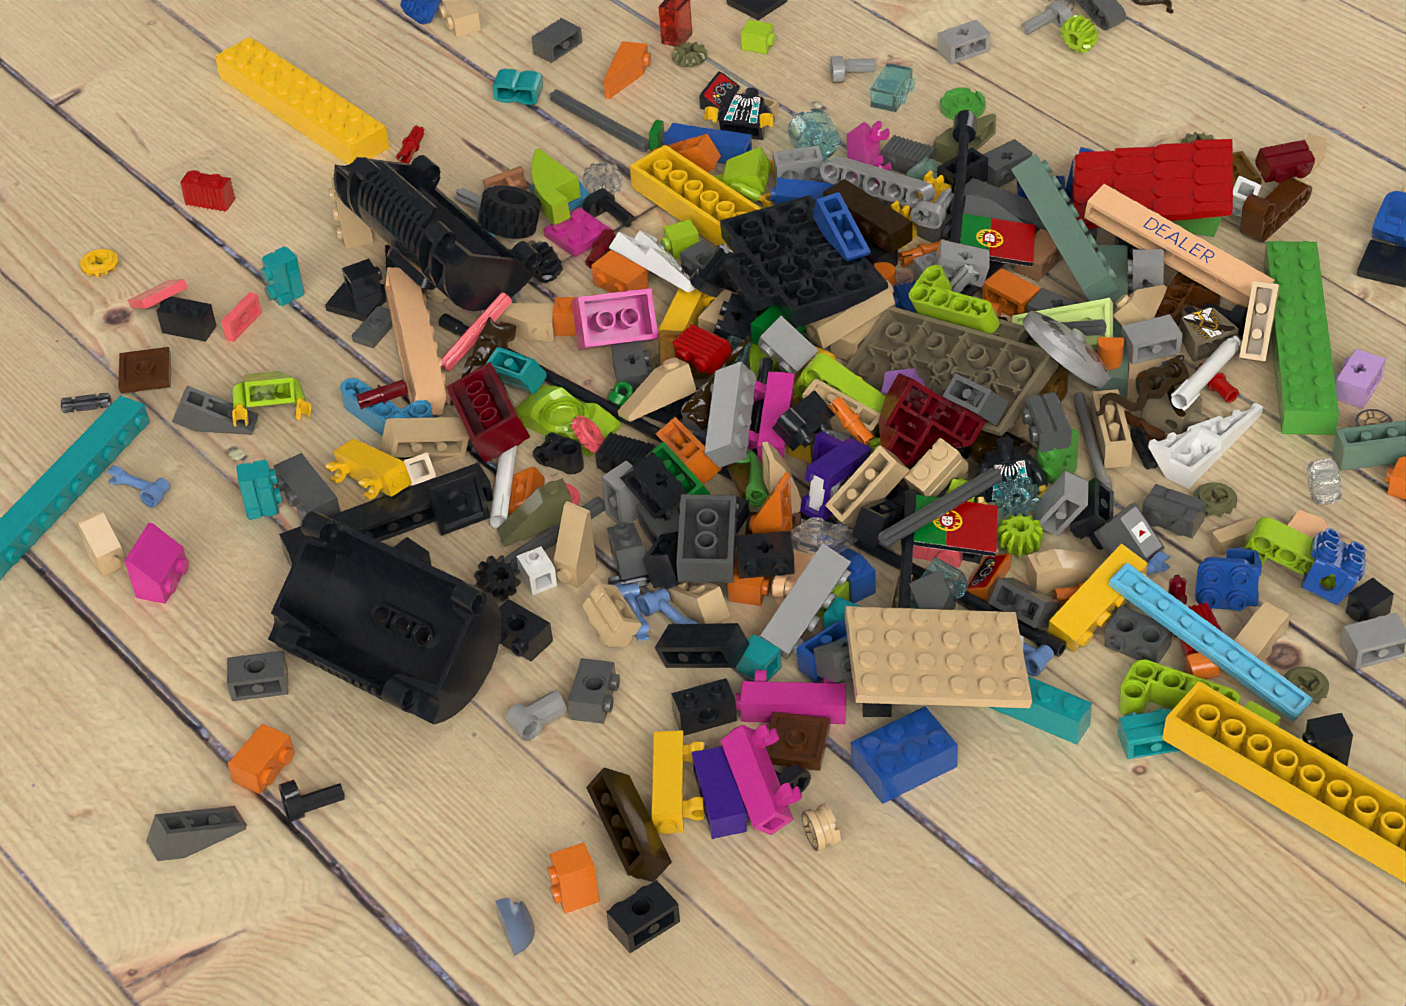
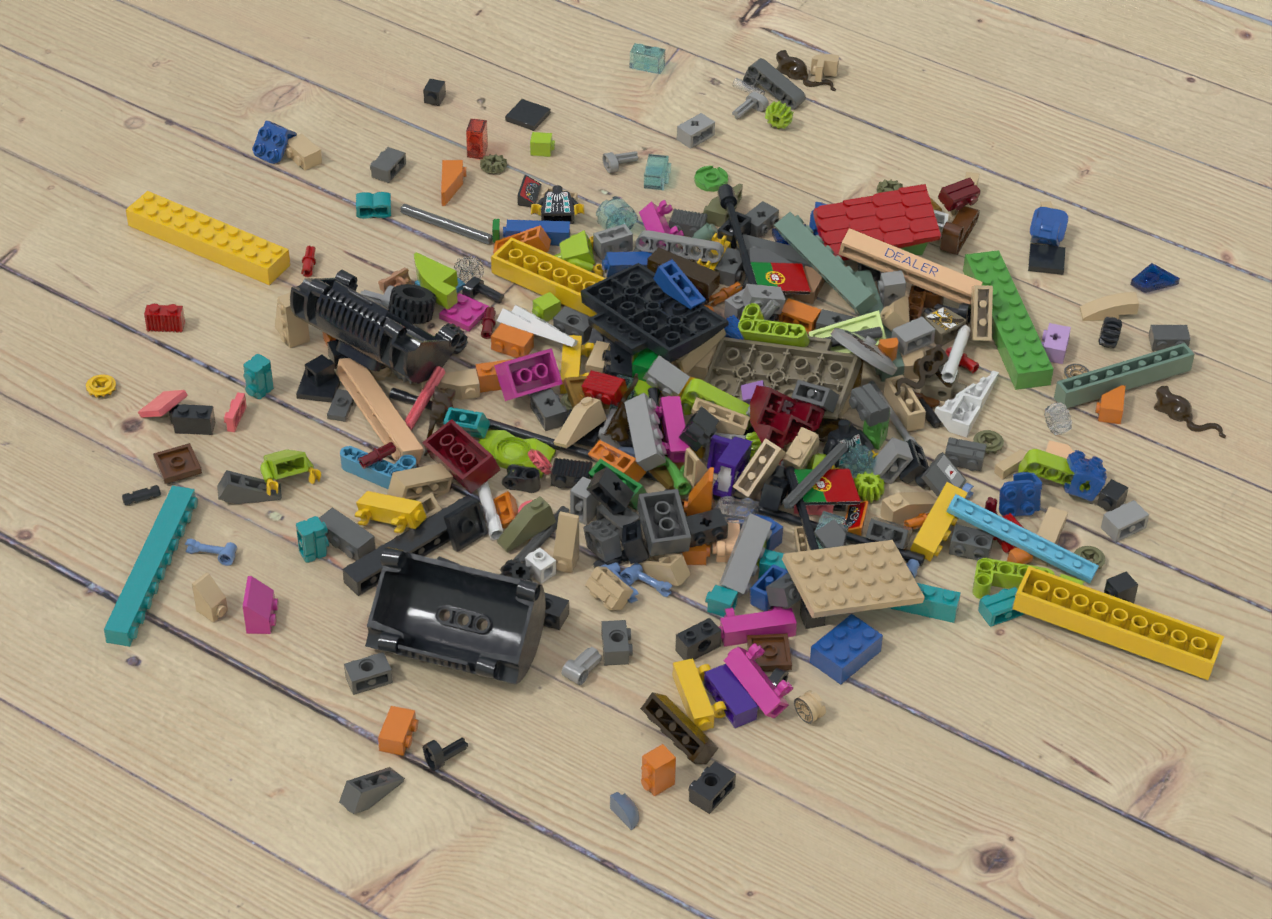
camera: 20 degrees left, 0 degrees up
(618, 397) = (550, 432): green tile -> none
(702, 645) = (682, 598): black brick -> none
(705, 278) = (584, 335): black piece -> none
(851, 420) = (731, 424): orange pin -> none
(934, 212) = (729, 263): light grey piece -> none

